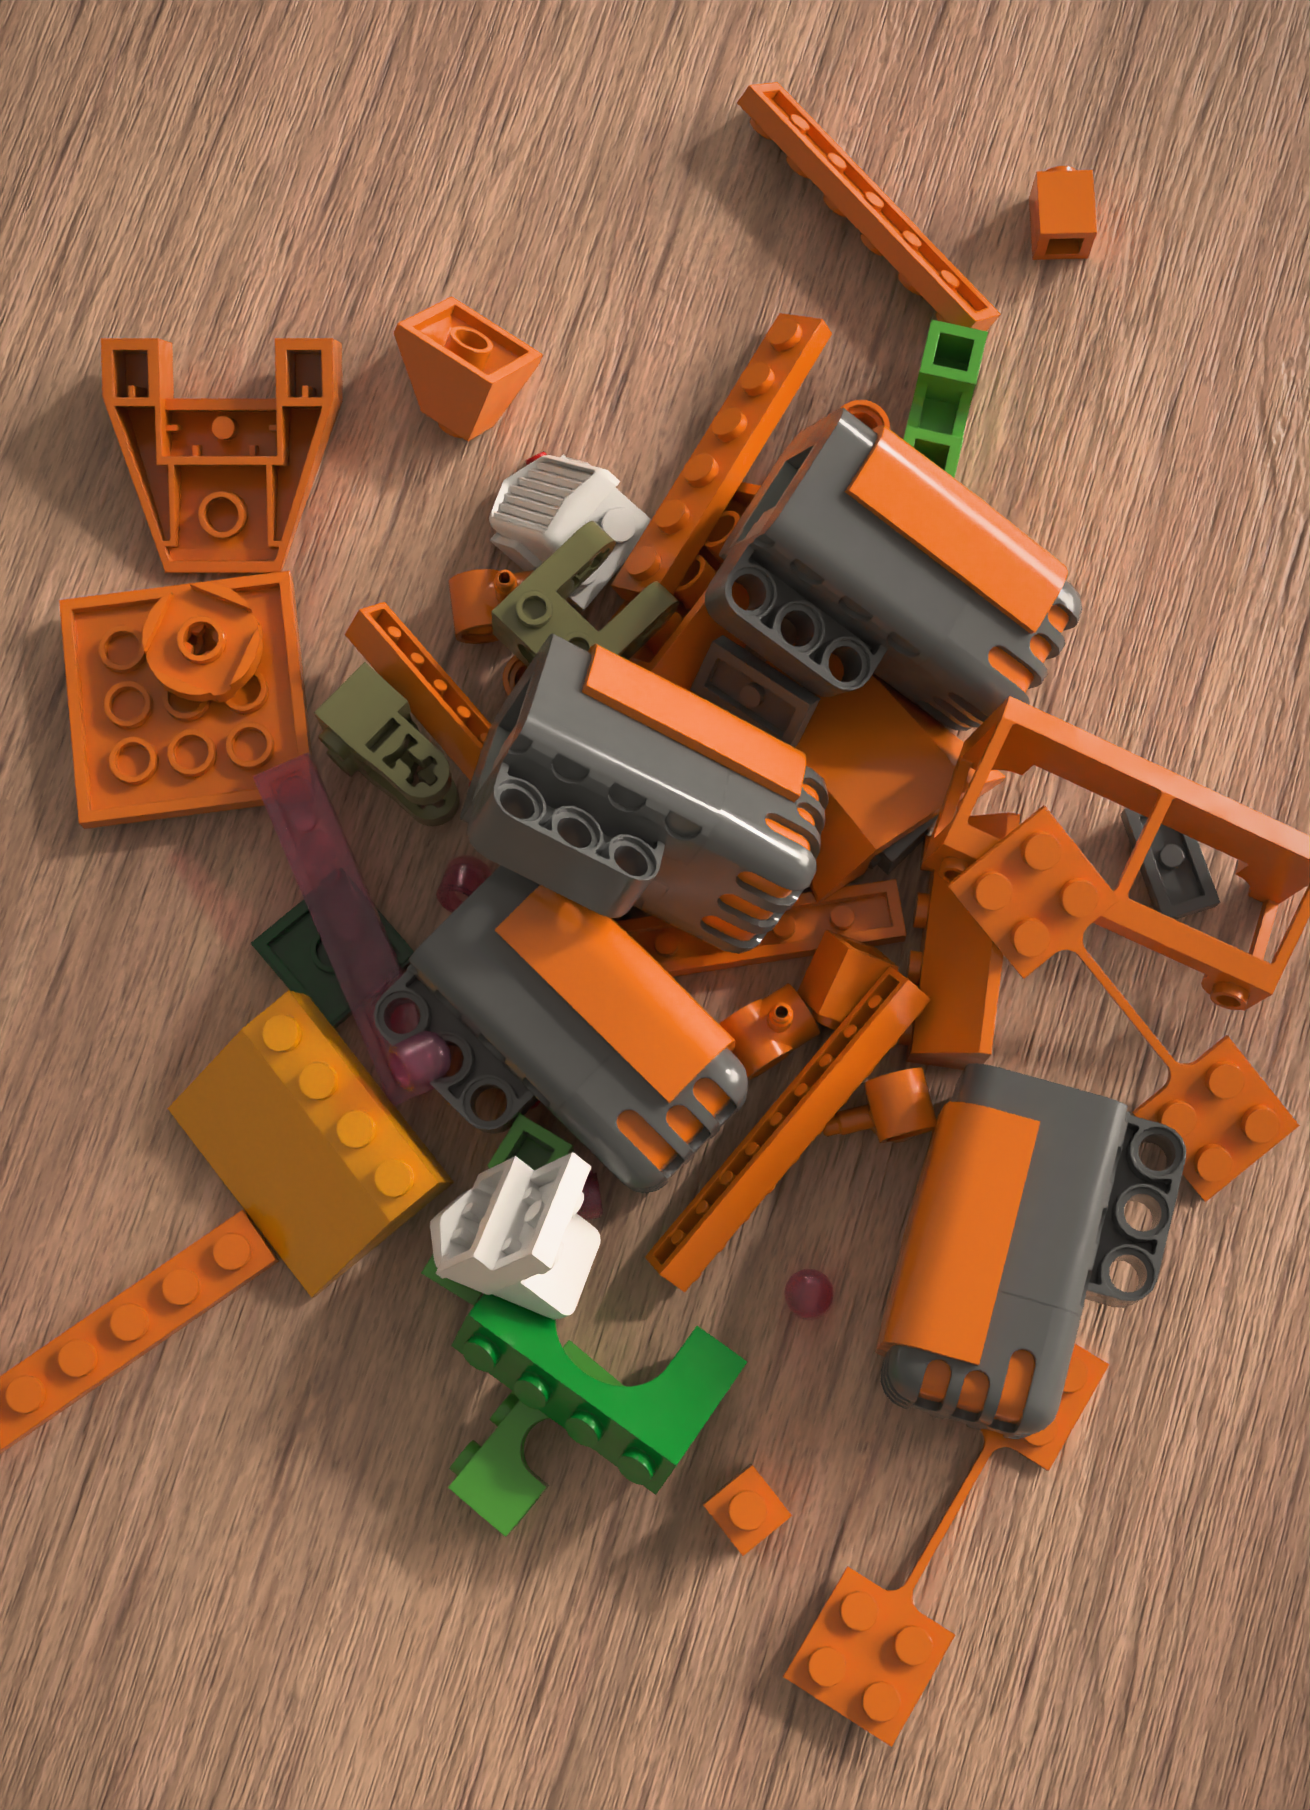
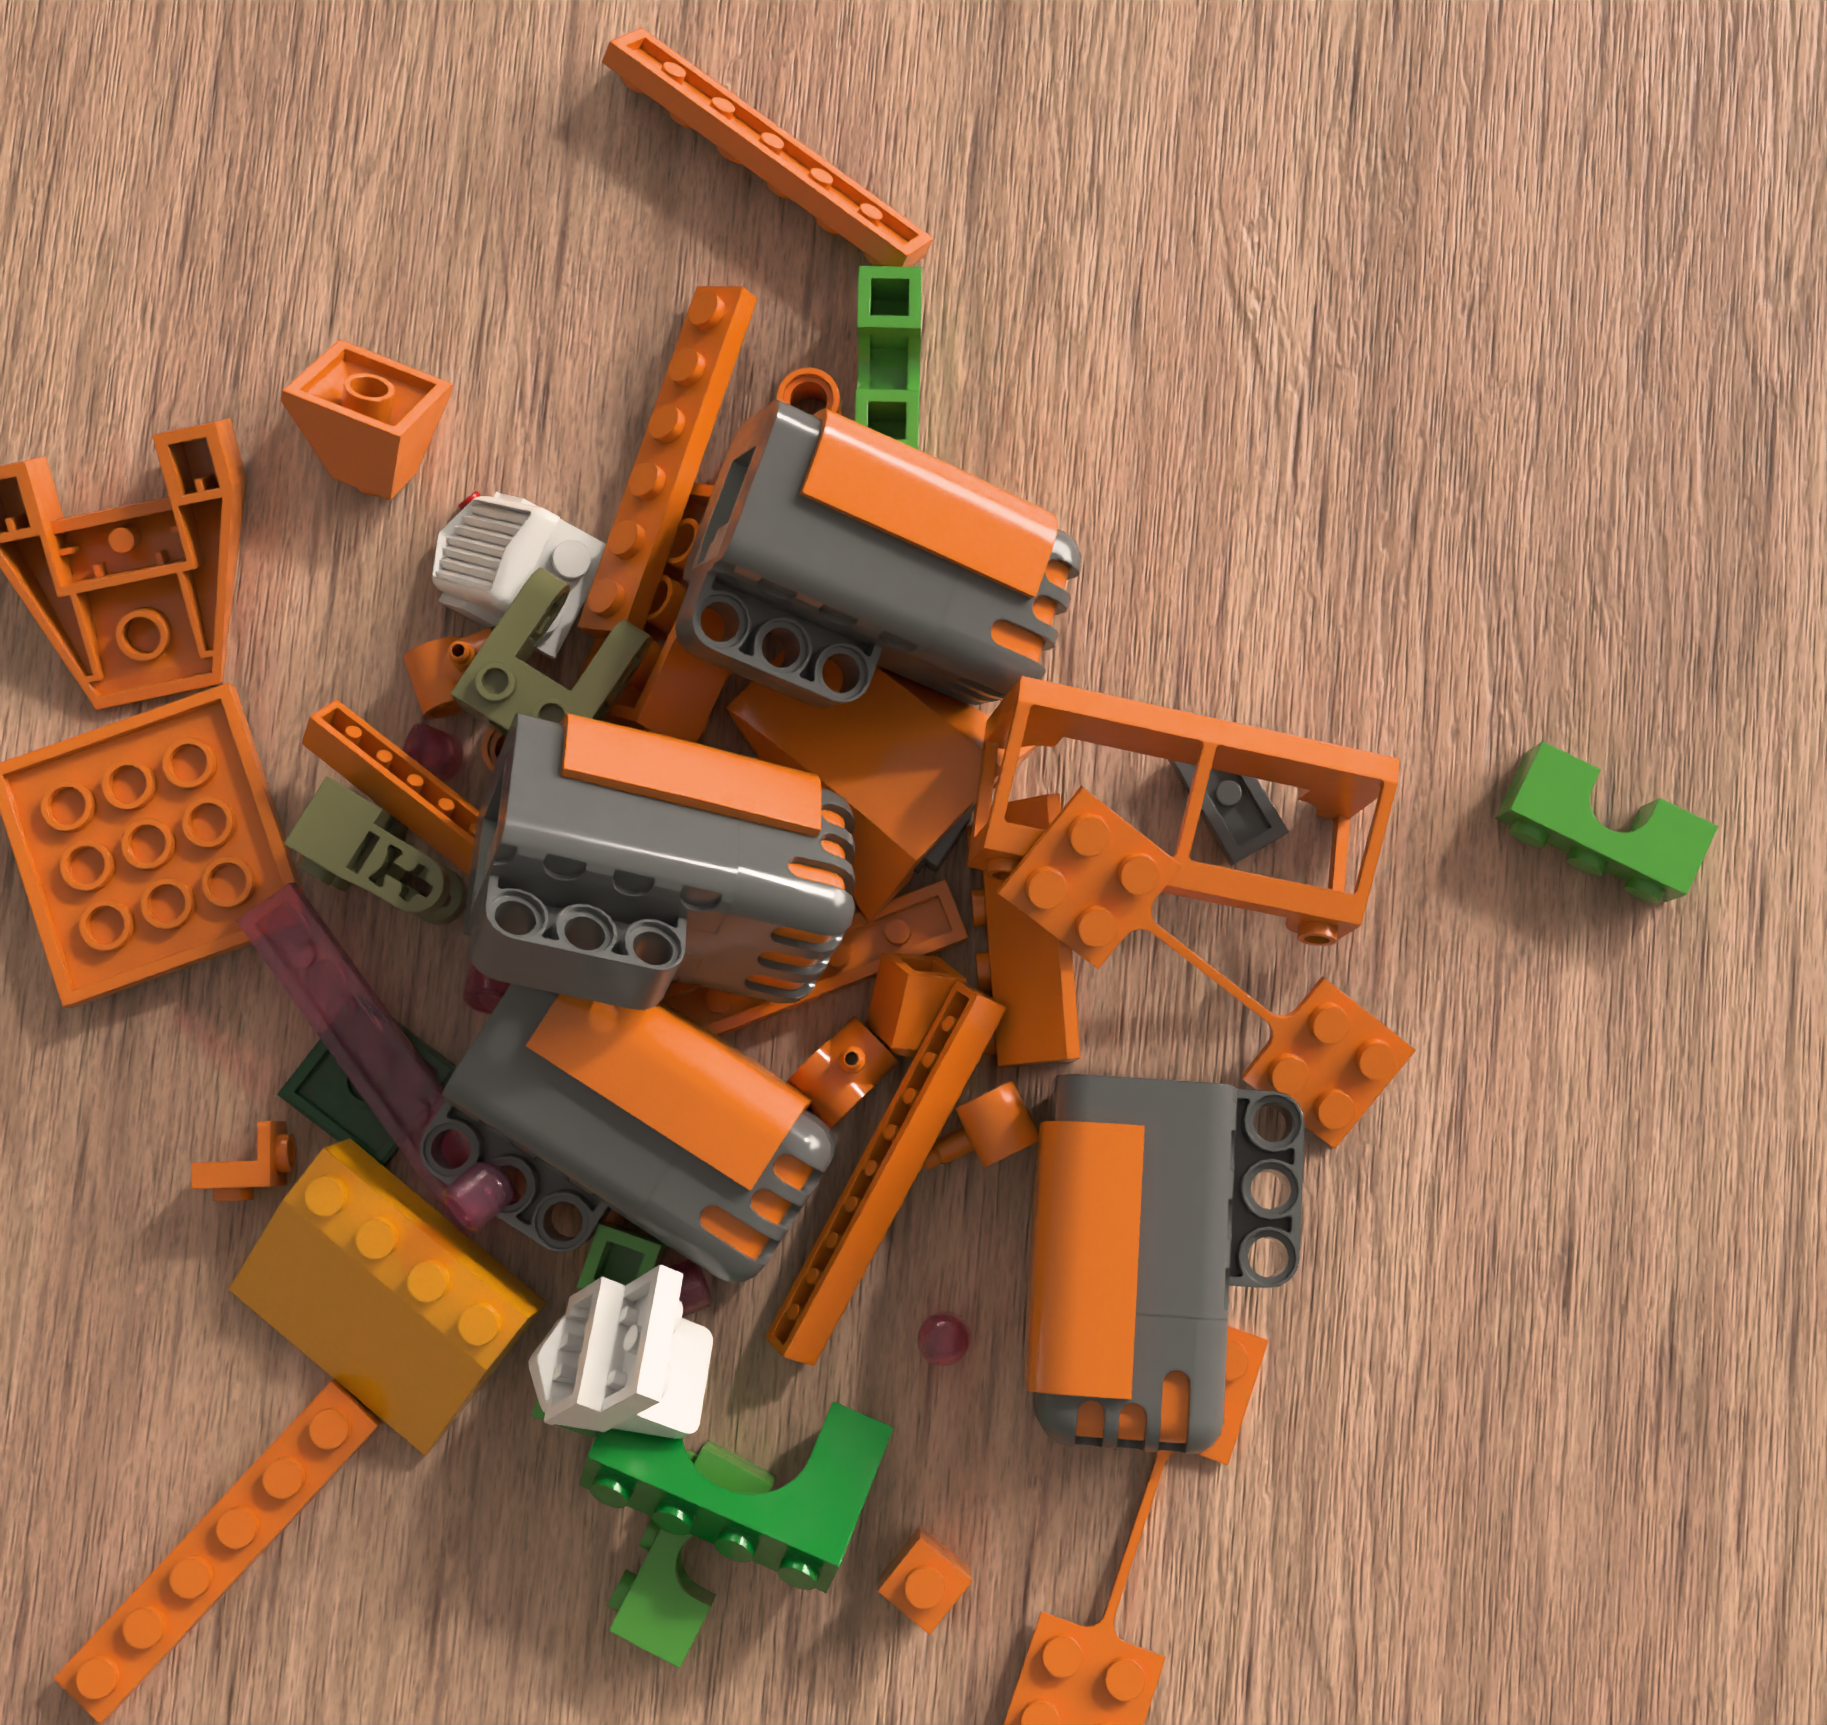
camera: 15 degrees left, 5 degrees up
(198, 1008) = (237, 1178): none -> orange bracket
(216, 672) = (132, 752): orange plate -> none
(461, 667) = (434, 750): none -> clear pink piece
(754, 691) = (753, 717): dark grey plate -> none
(1062, 214) = (977, 113): orange brick -> none

